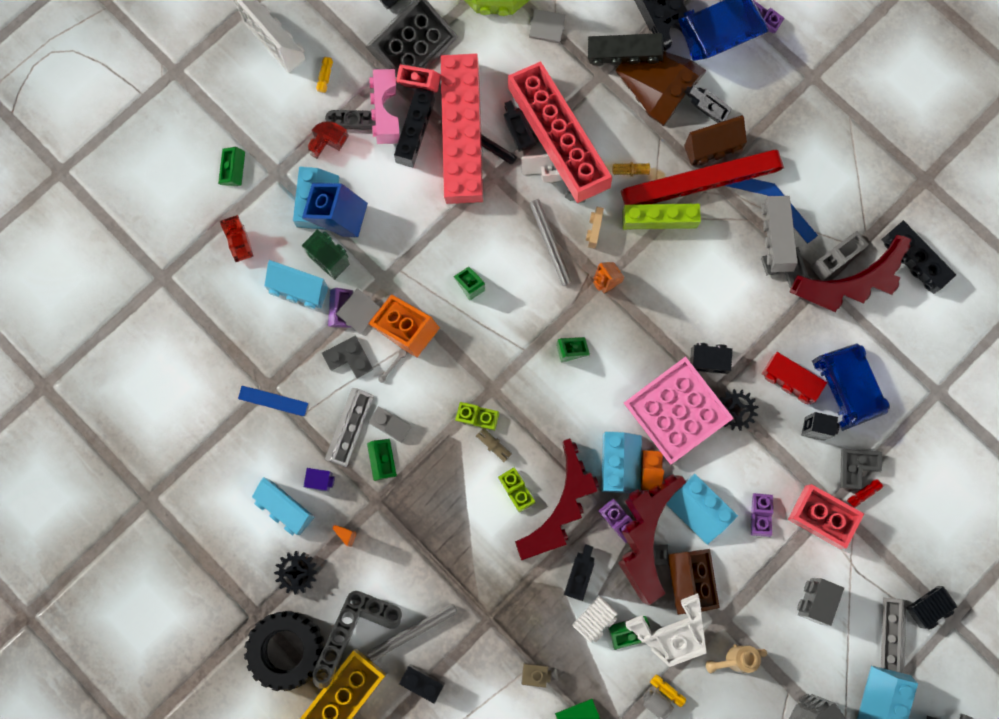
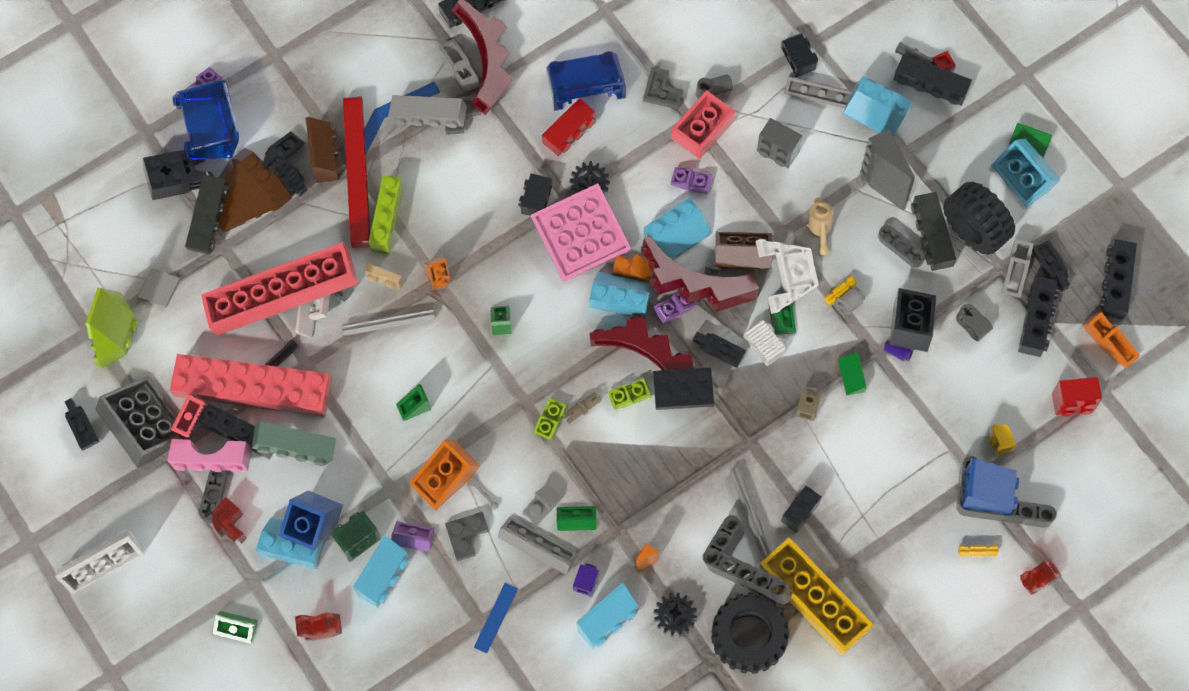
camera: 75 degrees left, 10 degrees down
(324, 74) = (156, 515): yellow axle -> none
(358, 311) = (420, 516): light grey piece -> none
(406, 178) = (293, 443): none -> sand green brick
(518, 127) = (261, 332): black hinge -> none
(526, 543) = (683, 388): none -> black plate
(631, 169) = (331, 231): clear yellow axle -> none
(679, 117) = (290, 177): none -> black gear
(820, 426) = (619, 112): black brick -> none
(865, 493) = (687, 88): red axle -> none
(874, 522) = (714, 86): none -> dark grey piece

